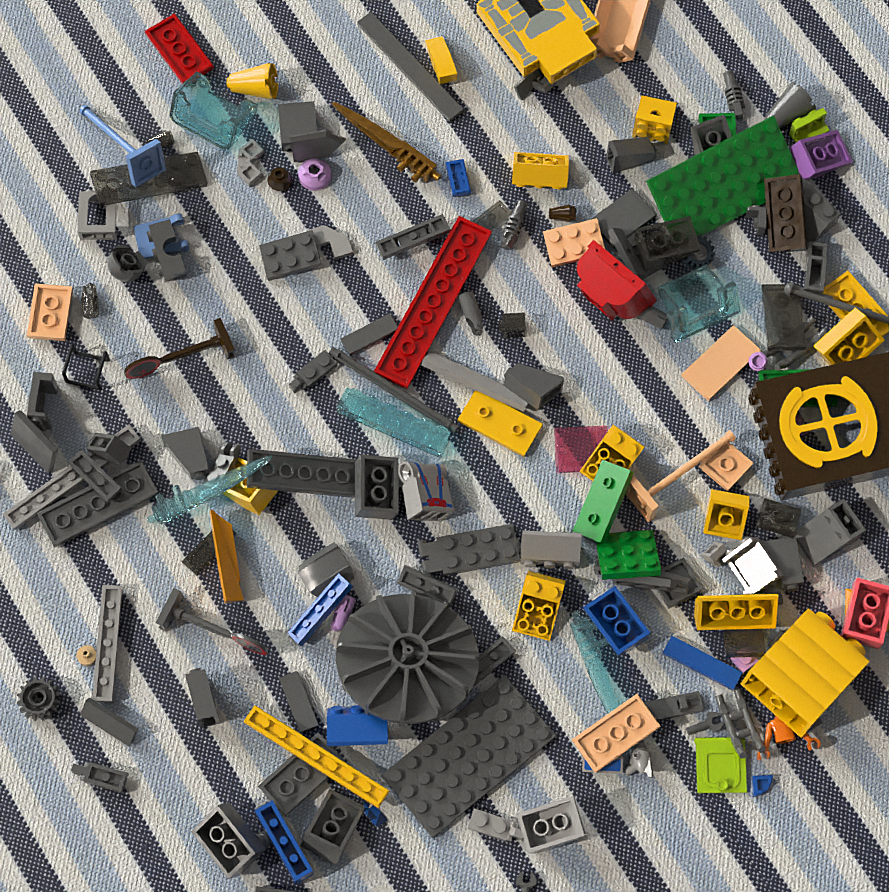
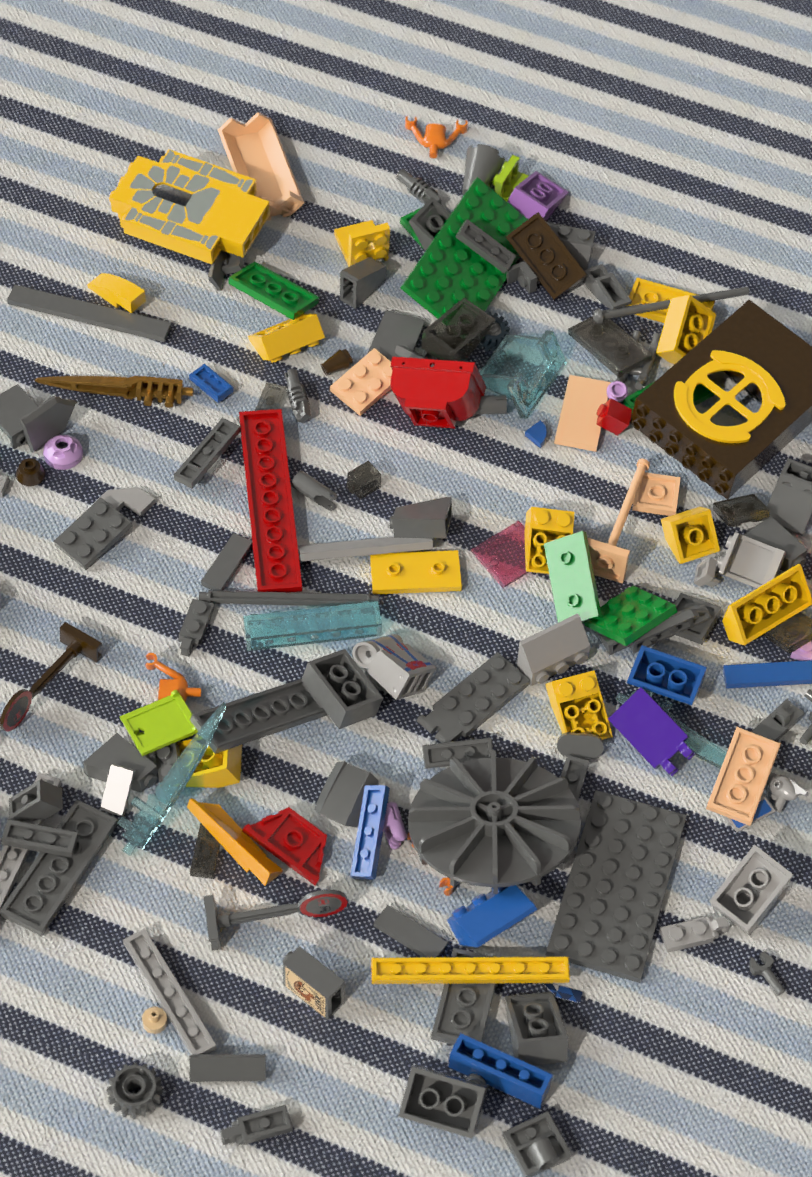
camera: 35 degrees left, 15 degrees down
(171, 470) = (117, 790): none -> tile
(233, 437) = (162, 723): none -> lime container
(260, 414) = (166, 686): none -> orange piece
(264, 582) = (291, 841): none -> red wing
(518, 634) = (580, 745): none -> dark grey tile
(556, 124) = (273, 290): none -> green plate
(576, 657) = (651, 731): none -> dark purple tile
(673, 360) = (537, 434): none -> blue tile
(738, 381) = (613, 416): none -> red brick
(739, 180) = (485, 246): none -> dark grey plate
(781, 52) = (435, 135): none -> orange piece

